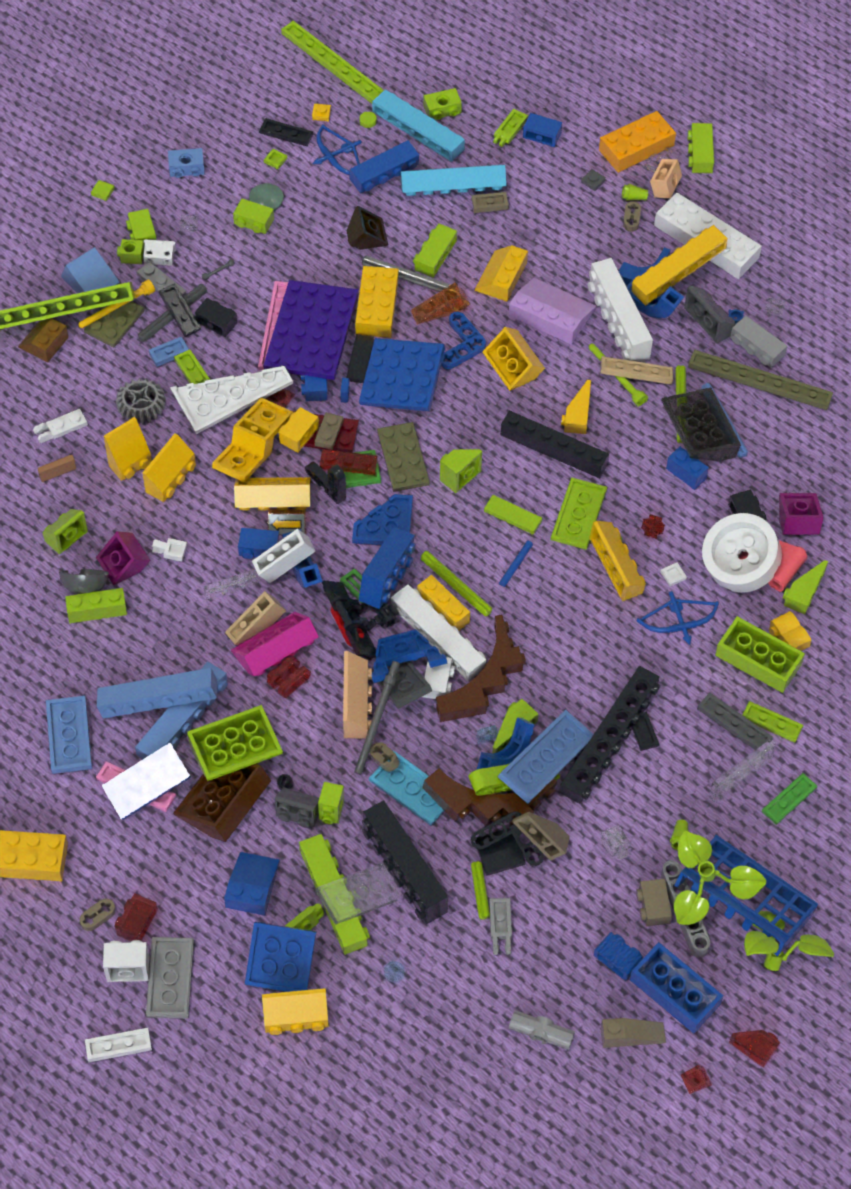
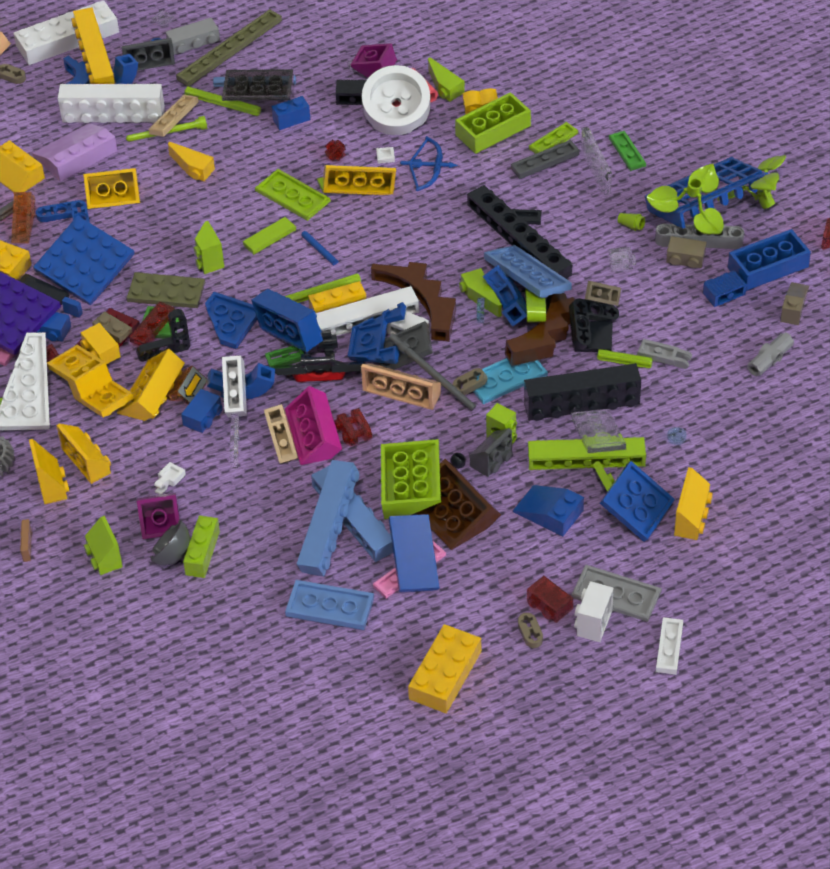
camera: 65 degrees left, 10 degrees down
(554, 444) = (217, 186): black brick -> none

